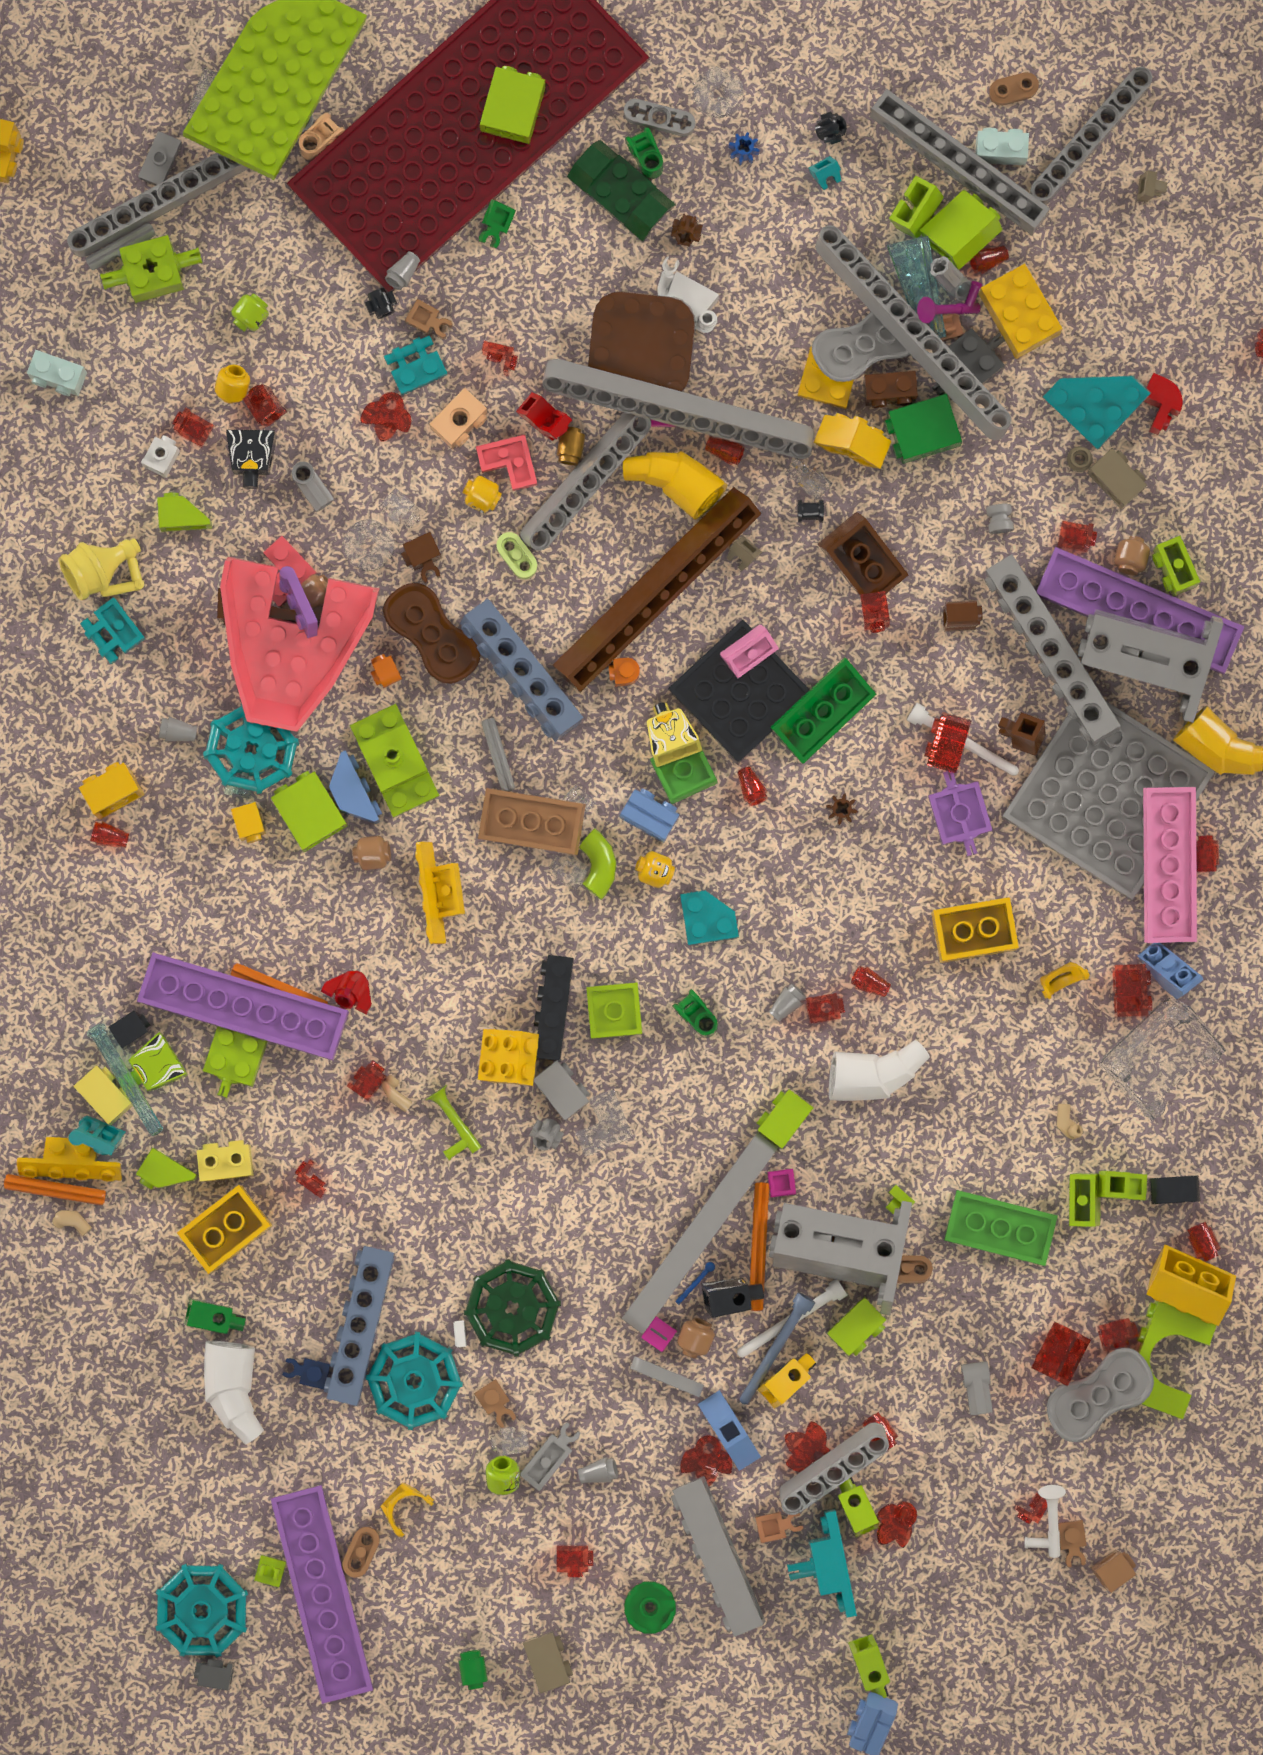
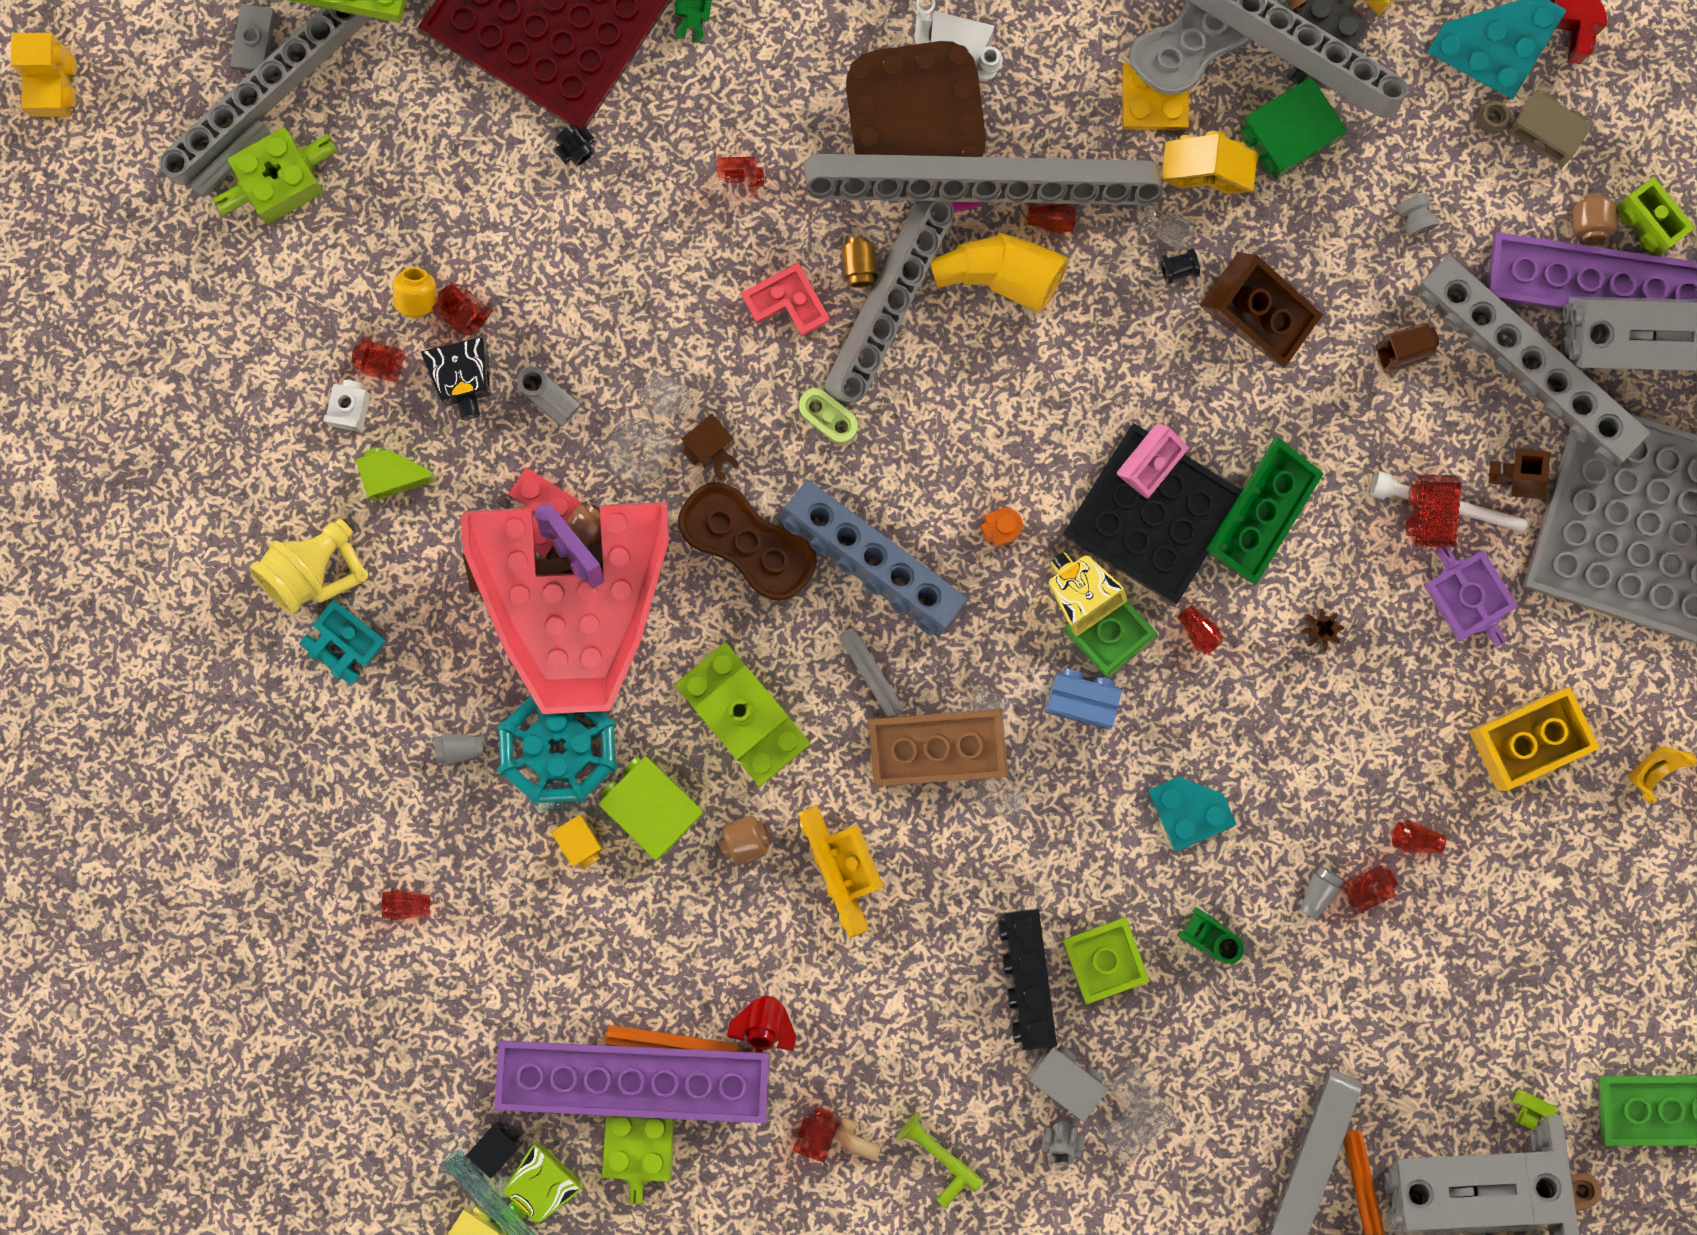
camera: 15 degrees left, 0 degrees up
(57, 373) = (189, 335): light aqua brick -> none
(110, 790) = (391, 848): yellow brick -> none
(249, 312) = (413, 198): lime head -> none
(351, 791) = (699, 768): medium blue slope -> none
(385, 671) = (701, 604): orange plate -> none
(386, 419) = (617, 288): clear red plate -> none
(402, 271) = (591, 98): light grey cone -> none
(419, 372) = (645, 219): teal plate -> none
(425, 318) = (634, 150): medium nougat plate -> none
(465, 405) = (711, 245): light nougat brick -> none
(481, 494) = (764, 350): yellow head -> none
(508, 1057) = (989, 1058): yellow brick -> none
(544, 416) = (816, 234): red brick -> none
(602, 863) = (1040, 778): lime cylinder -> none
(655, 869) = (1109, 767): yellow head -> none
(657, 589) = (1016, 413): reddish brown brick -> none
(745, 550) = (1113, 337): dark tan tile -> none
(781, 1183) = (1376, 1125): dark pink tile -> none
(784, 1118) = (1359, 1042): lime brick -> none
(873, 1077) = (1453, 960): white piece -> none
(875, 611) = (1296, 370): clear red bracket -> none
(890, 389) = (1237, 89): reddish brown brick -> none
(1076, 536) = (1518, 213): clear red bracket -> none

